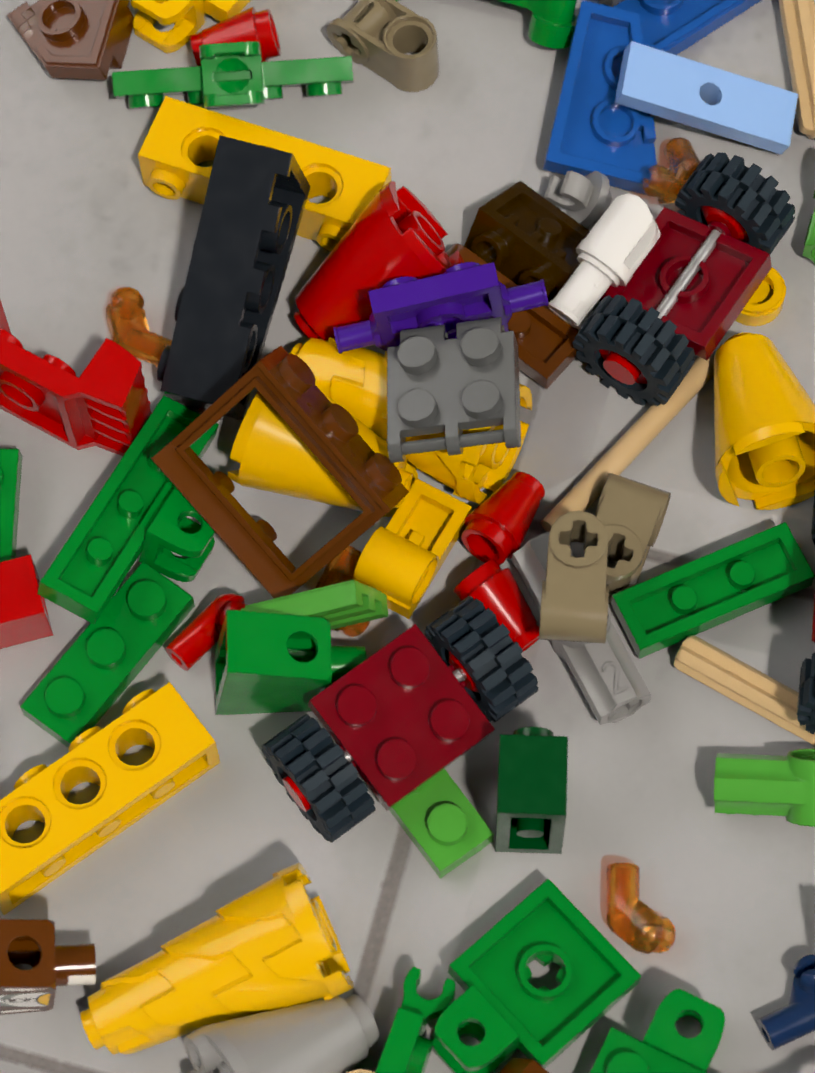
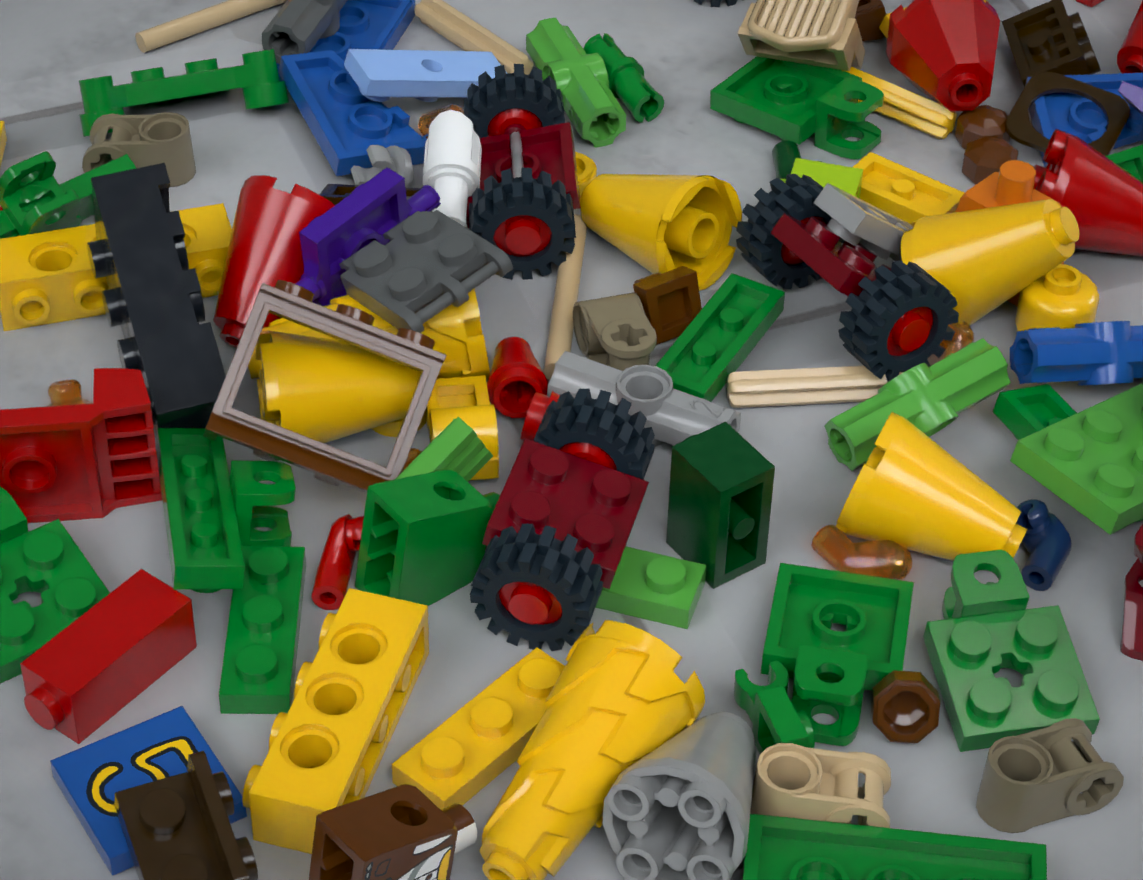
camera: 40 degrees left, 25 degrees down
(189, 878) = (481, 735): none -> yellow plate
(575, 587) = (628, 346): dark tan piece -> none
(698, 519) = (669, 301): none -> reddish brown tile
(722, 906) = (926, 499): none -> yellow cone

